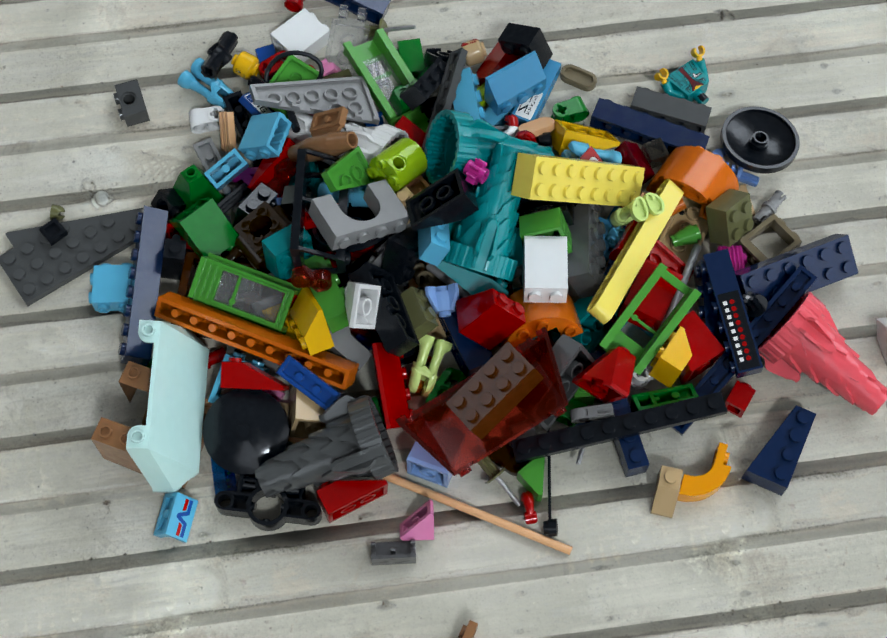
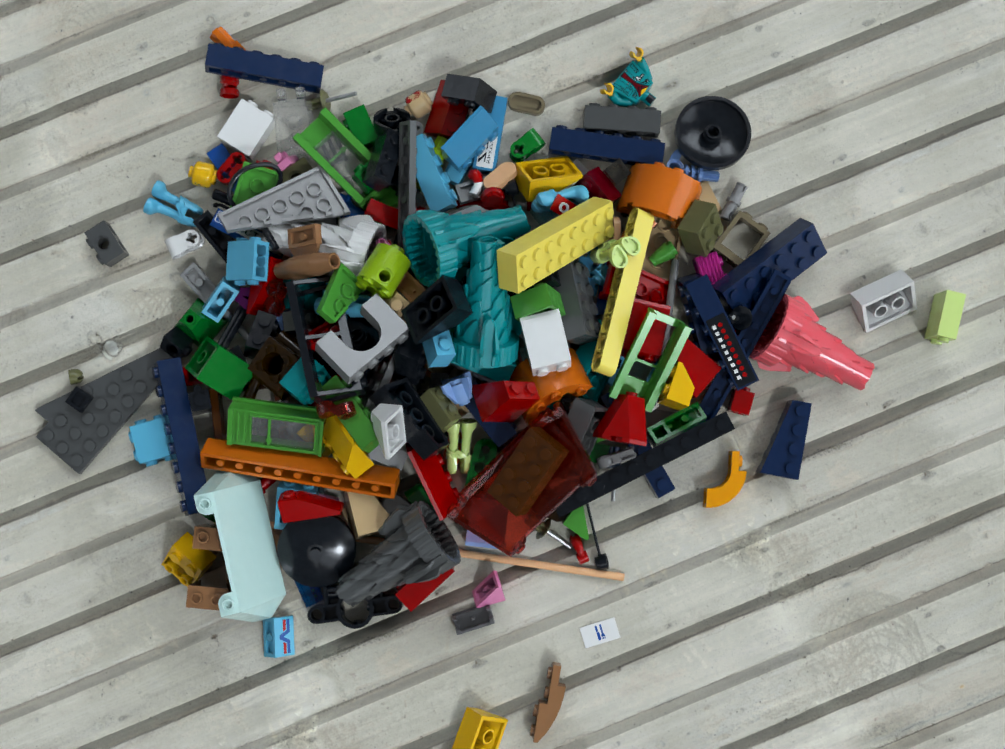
camera: 15 degrees left, 20 degrees up
(108, 403) = (187, 563): none -> yellow slope
(219, 54) = (174, 171): black piece -> none
(227, 131) = (208, 254): light nougat tile -> none
(308, 382) = (360, 500): blue tile -> none
(476, 171) = (461, 275): dark pink gear -> none
(530, 606) = (600, 632): none -> white sticker
(666, 491) = (694, 504): tan slope -> none

